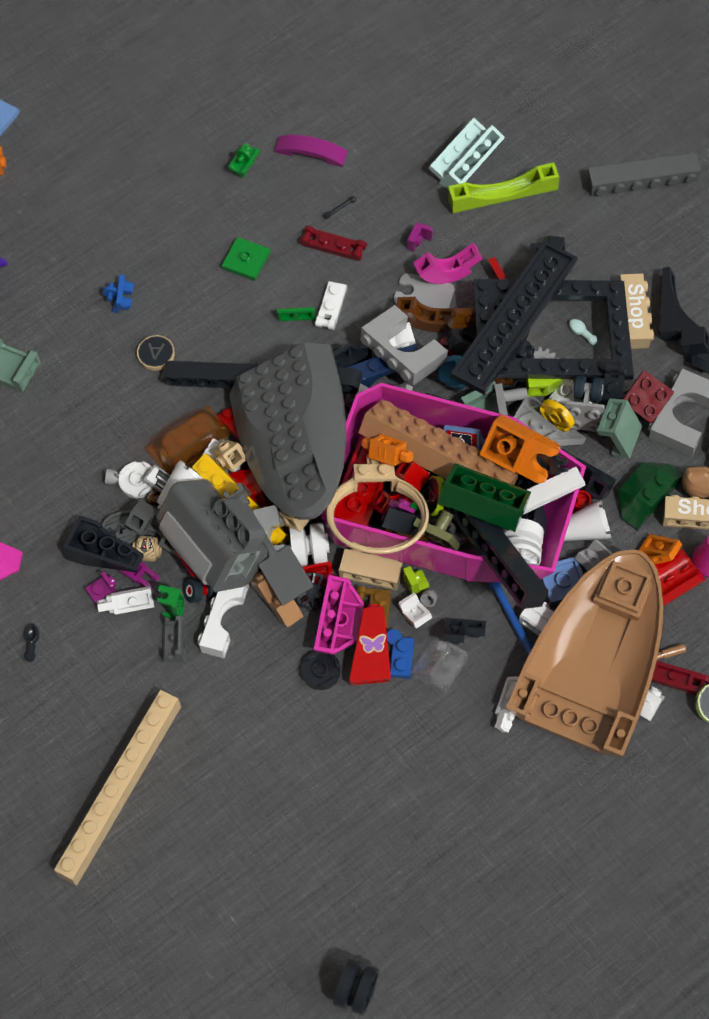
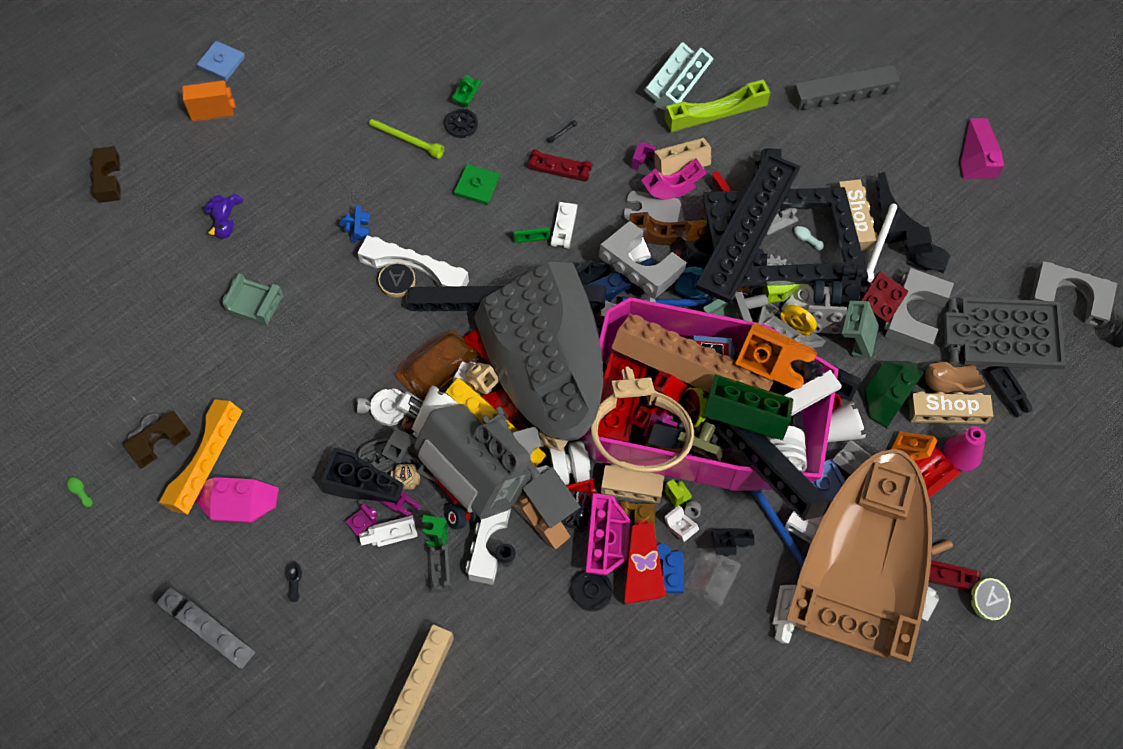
camera: 10 degrees left, 0 degrees up
(141, 325) = (380, 254): none -> white arch
(207, 221) = (436, 150): none -> lime piece
(236, 193) = (461, 123): none -> black wheel
(237, 629) = (505, 550): none -> black cone
(312, 147) = (531, 76): magenta slope -> none
(387, 450) = (643, 364): orange piece -> none
(439, 391) = (680, 302): none -> blue bar
(452, 241) = (675, 158): none -> tan brick
(555, 312) = (783, 219): none -> light grey hinge
(654, 340) = (879, 244): none -> white piece

